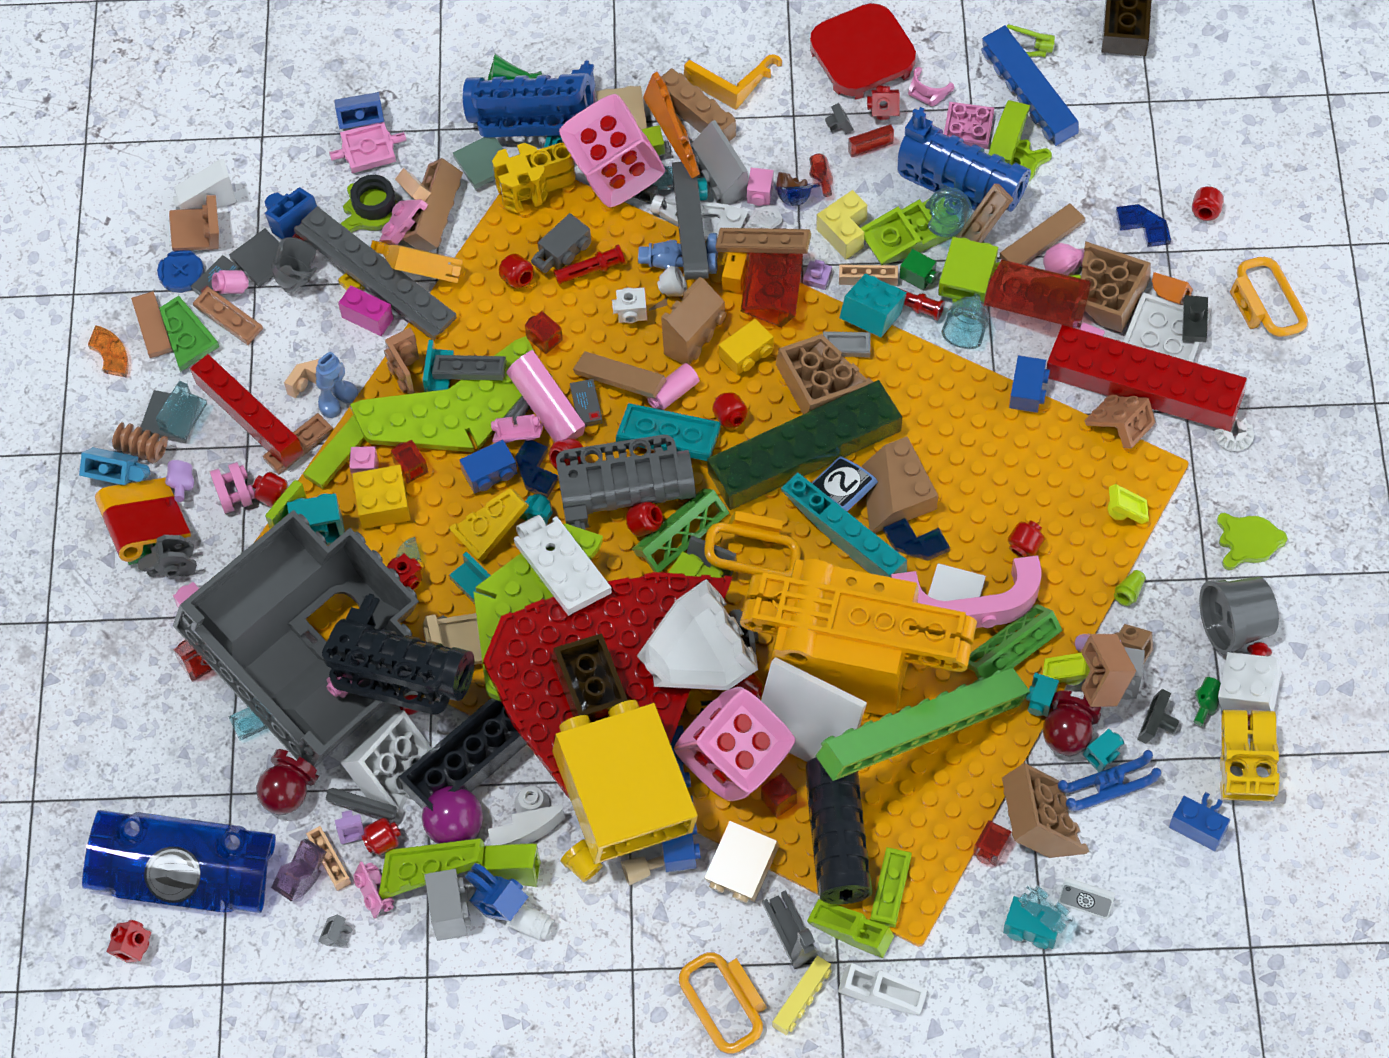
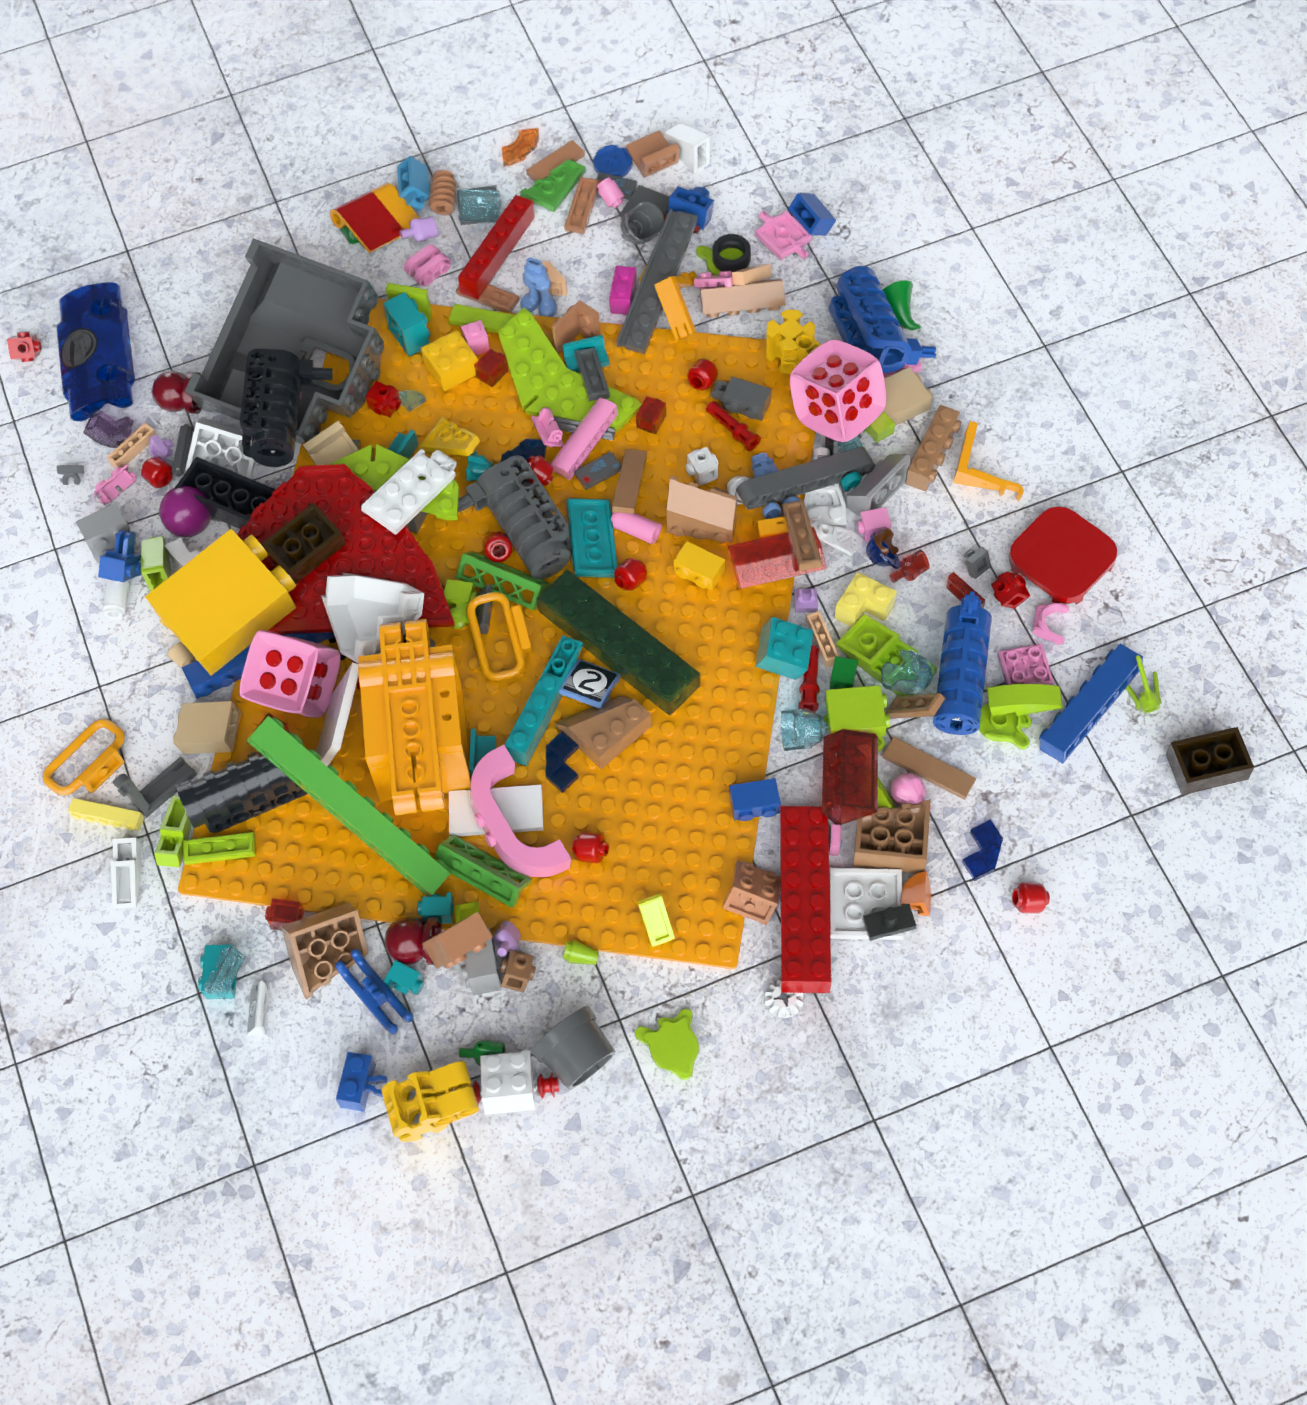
camera: 70 degrees right, 0 degrees up
(169, 557) = (347, 249): dark grey hinge -> none
(269, 488) = (437, 289): red head -> none
(406, 867) = (138, 509): lime wing -> none
(477, 160) = (812, 311): sand green tile -> none
(488, 466) = (507, 422): blue brick -> none
(661, 106) = (911, 425): orange wedge -> none
(817, 372) = (690, 626): medium nougat wedge -> none
(850, 343) = (739, 643): light grey tile -> none
(1157, 718) = (452, 1016): pearl dark grey tile -> none
(1253, 308) = (935, 970): light orange bar -> none

